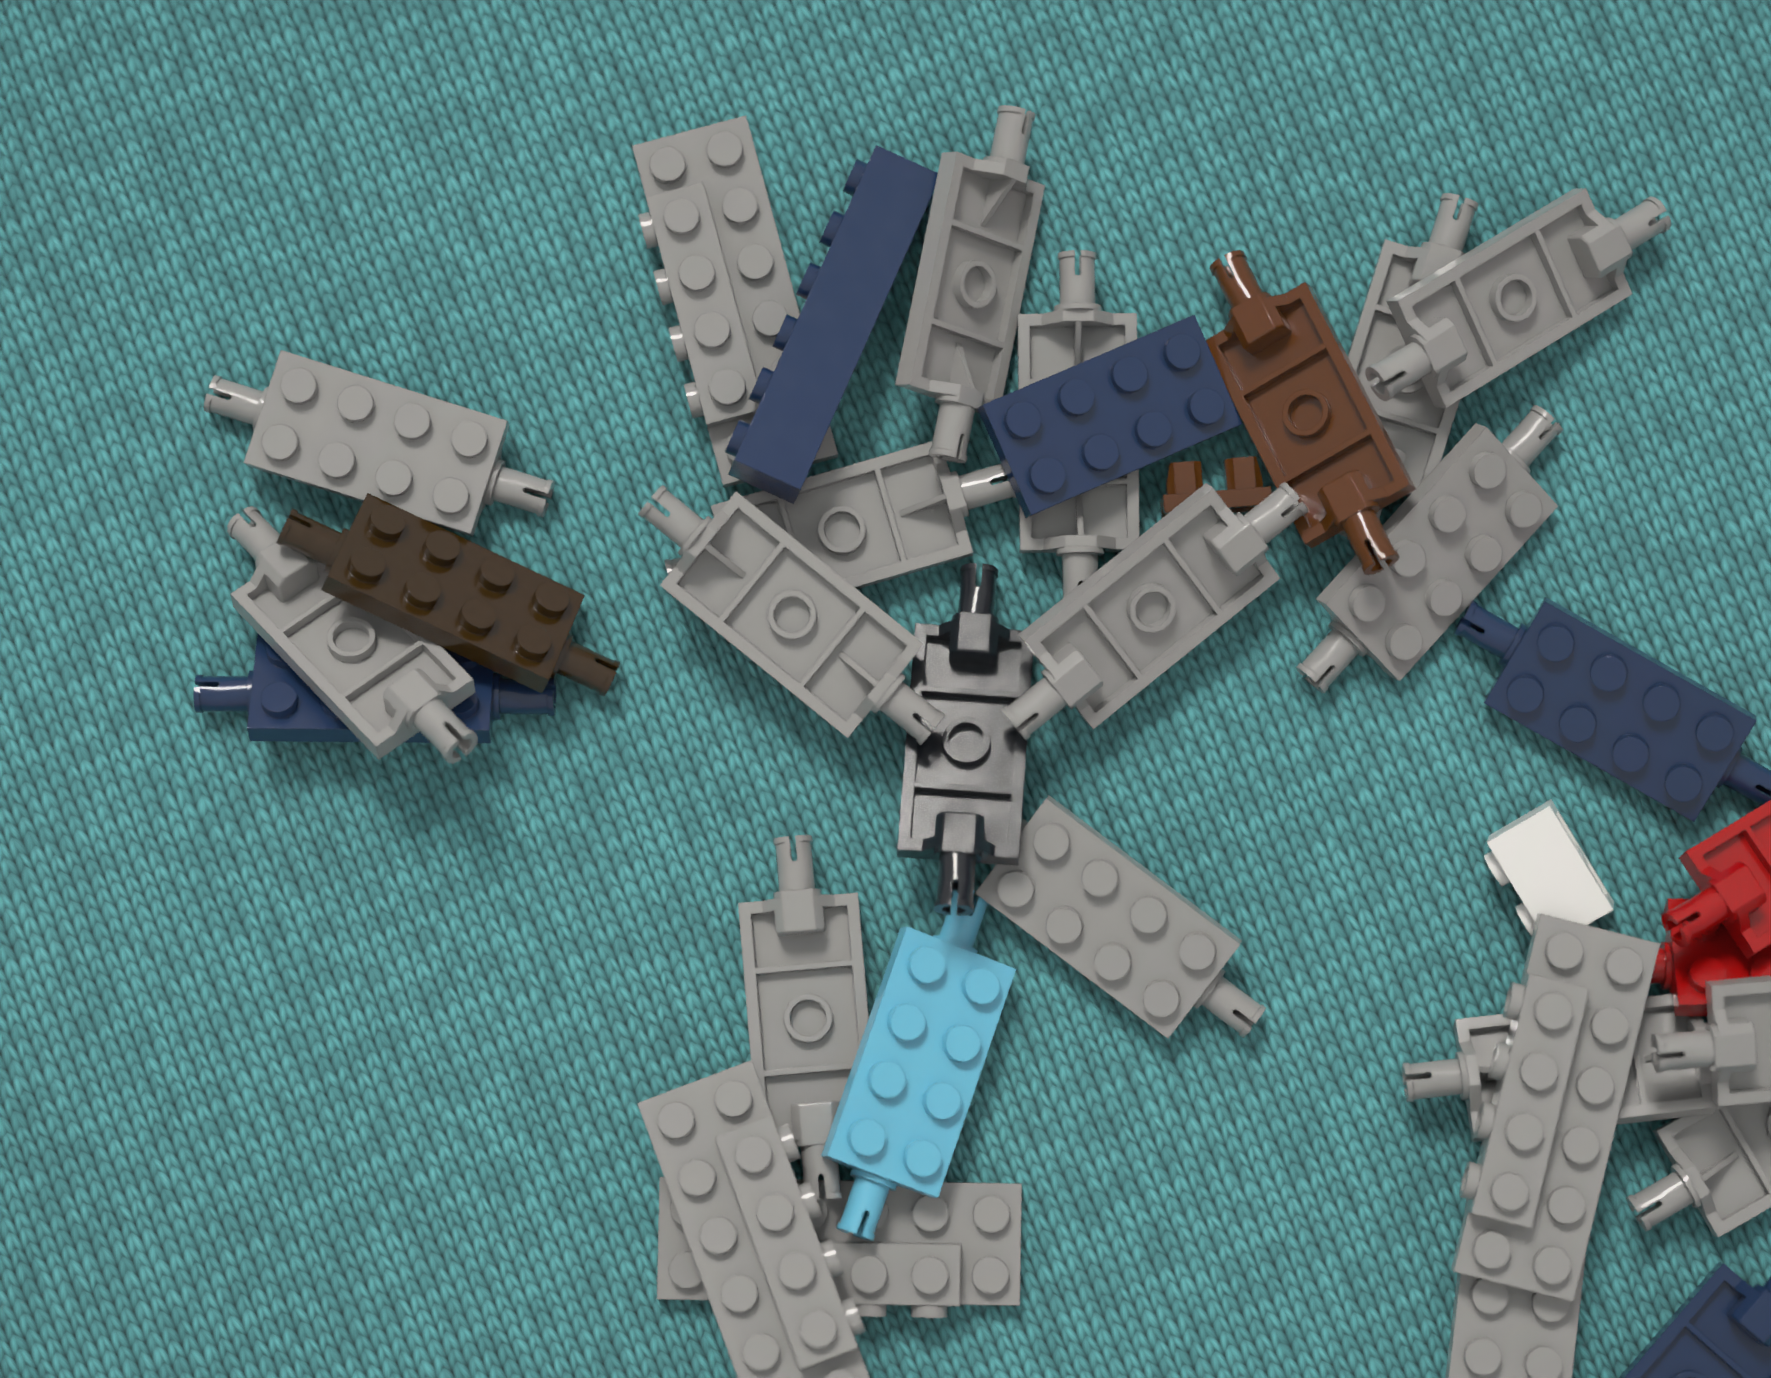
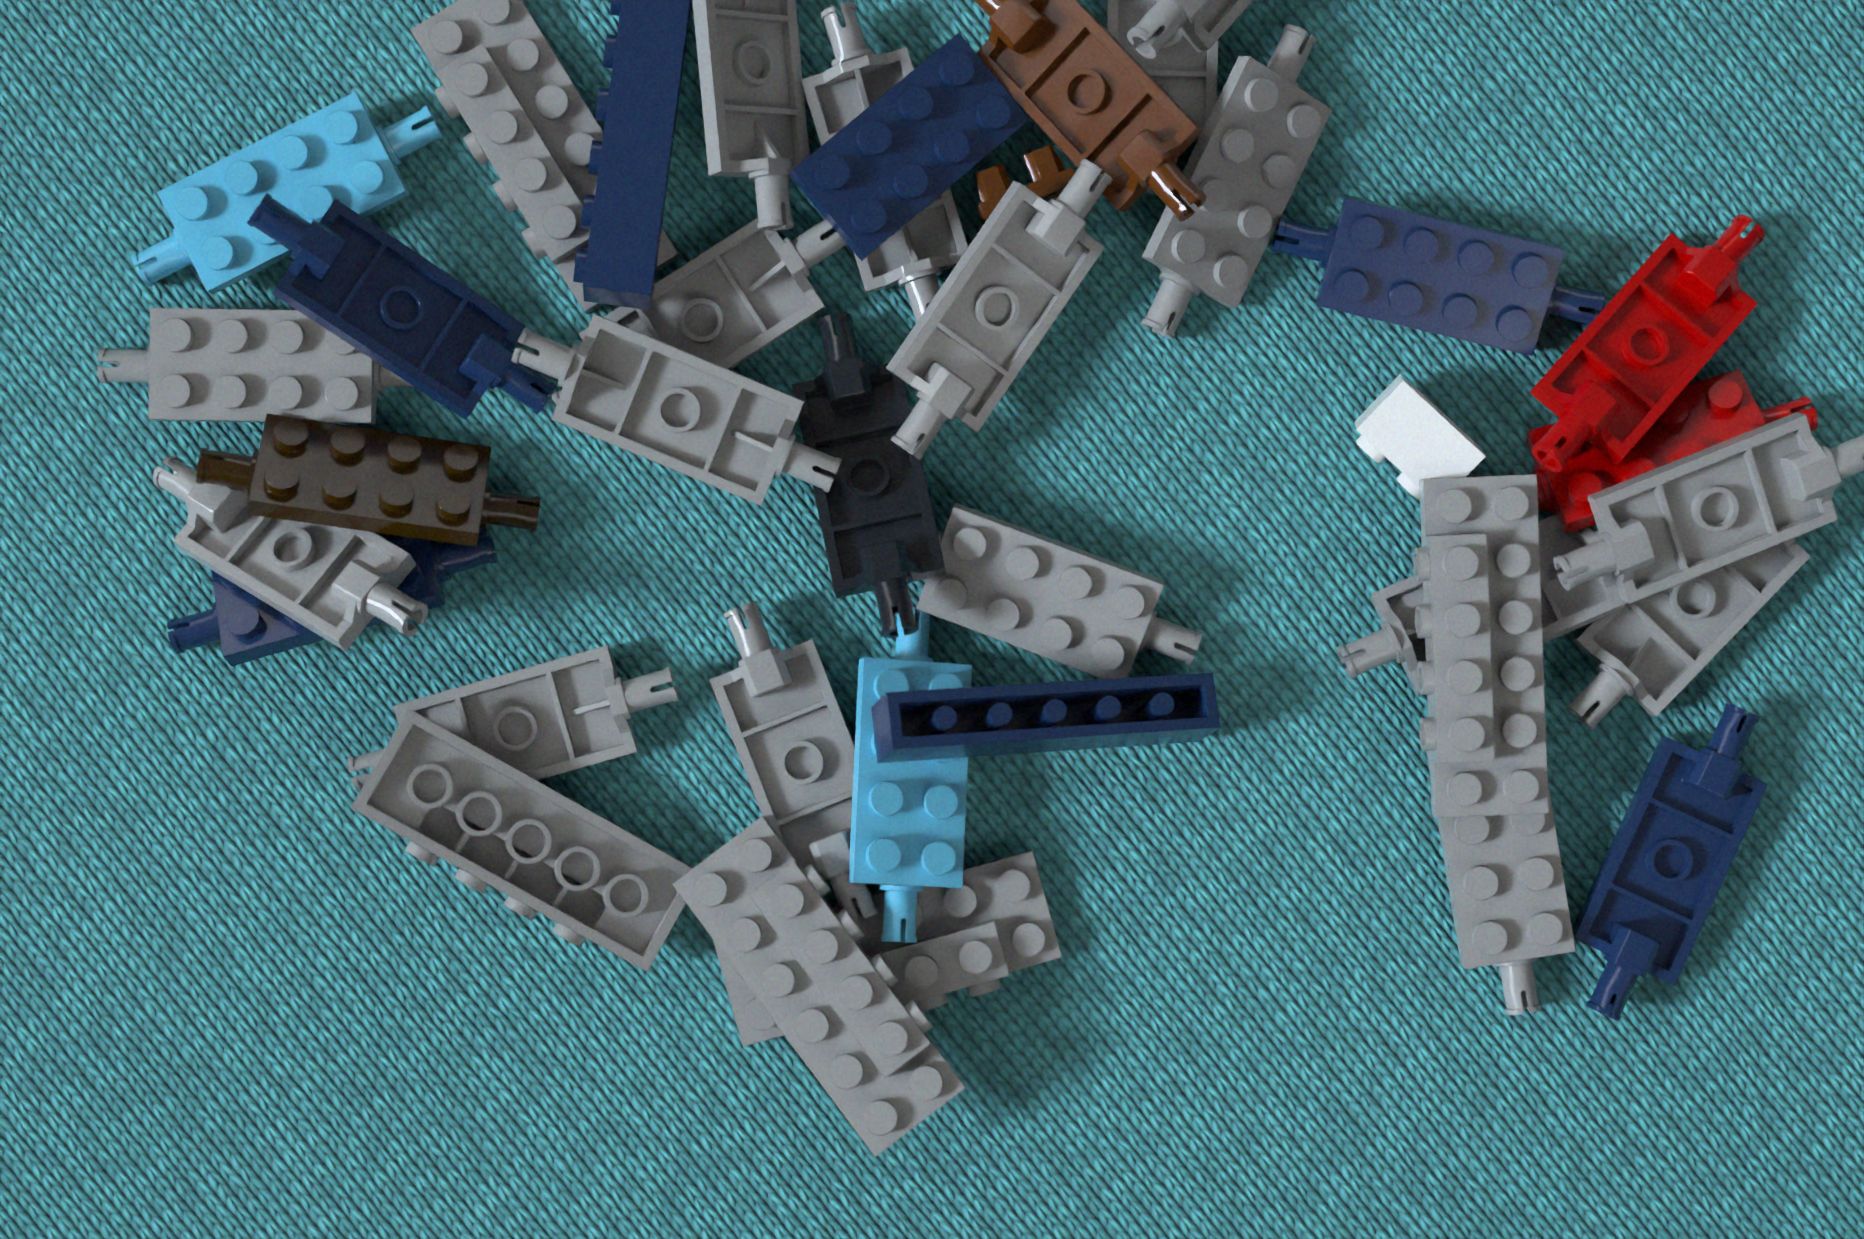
camera: 15 degrees left, 5 degrees up
(453, 274) = (301, 166): none -> medium azure plate
(496, 1014) = (523, 841): none -> light grey plate
(521, 894) = (543, 715): none -> light grey plate
(537, 427) = (399, 308): none -> dark blue plate
(1076, 1044) = (1044, 717): none -> dark blue brick

